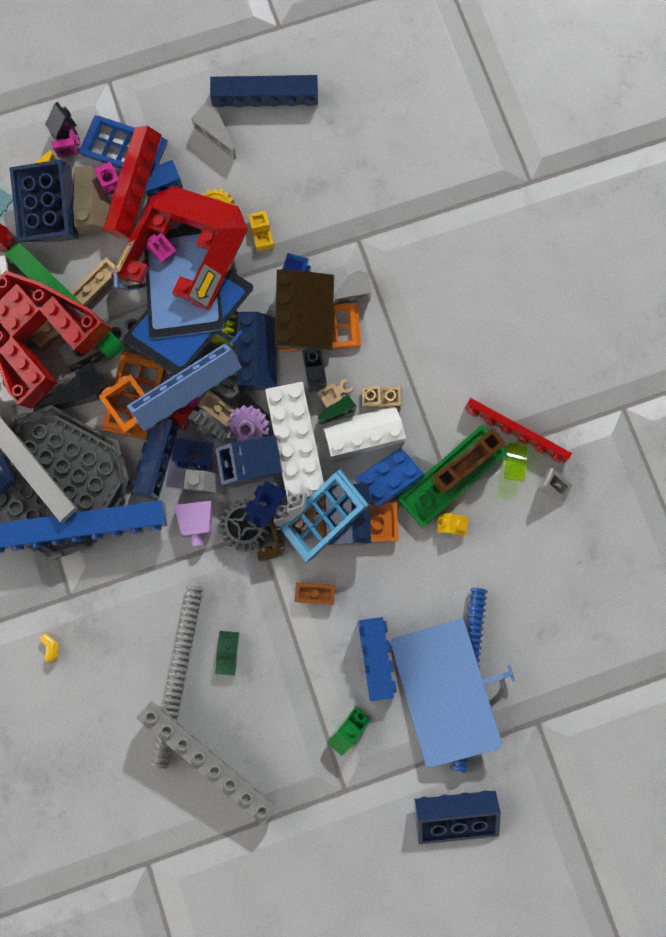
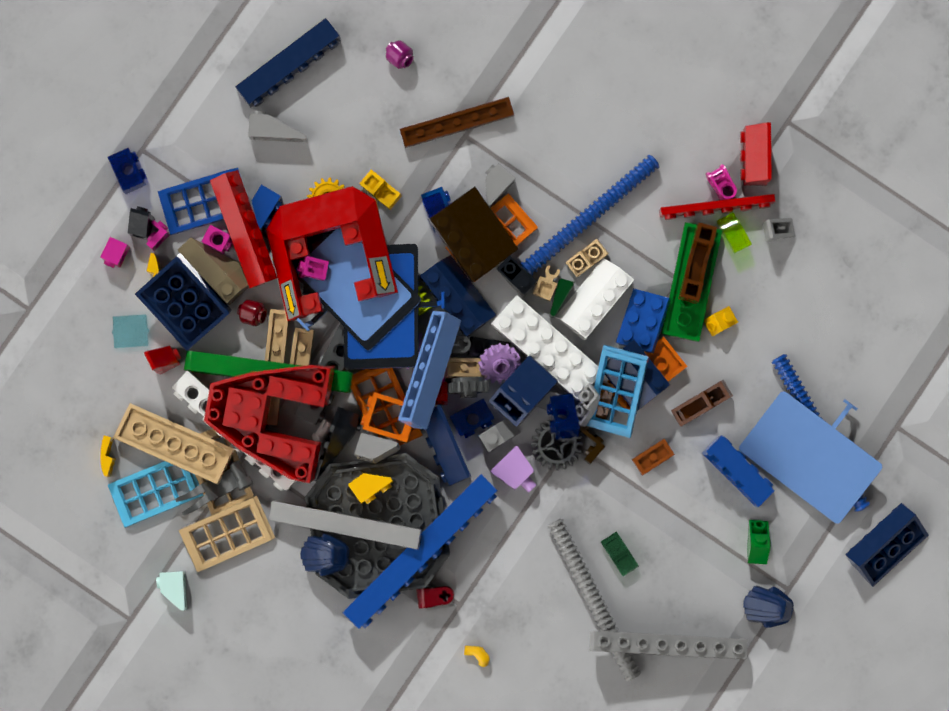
camera: 40 degrees left, 5 degrees up
(26, 134) = (114, 252): none -> dark pink brick
(51, 572) = (430, 596): none -> dark red piece
(66, 443) = (368, 485): none -> yellow slope
(83, 74) = (119, 162): none -> clear blue brick
(90, 250) = (252, 312): none -> dark red head
(96, 419) = (374, 449): none -> light grey slope
(108, 303) = (301, 347): none -> tan plate
(316, 793) = (768, 606): none -> dark blue hair
(353, 142) = (399, 54): none -> magenta head
(358, 222) = (457, 122): none -> reddish brown plate
(388, 579) = (701, 403): none -> reddish brown slope
(410, 364) = (590, 214): none -> blue piece
(535, 413) = (720, 180): none -> dark pink piece
(579, 412) = (756, 154): none -> slope

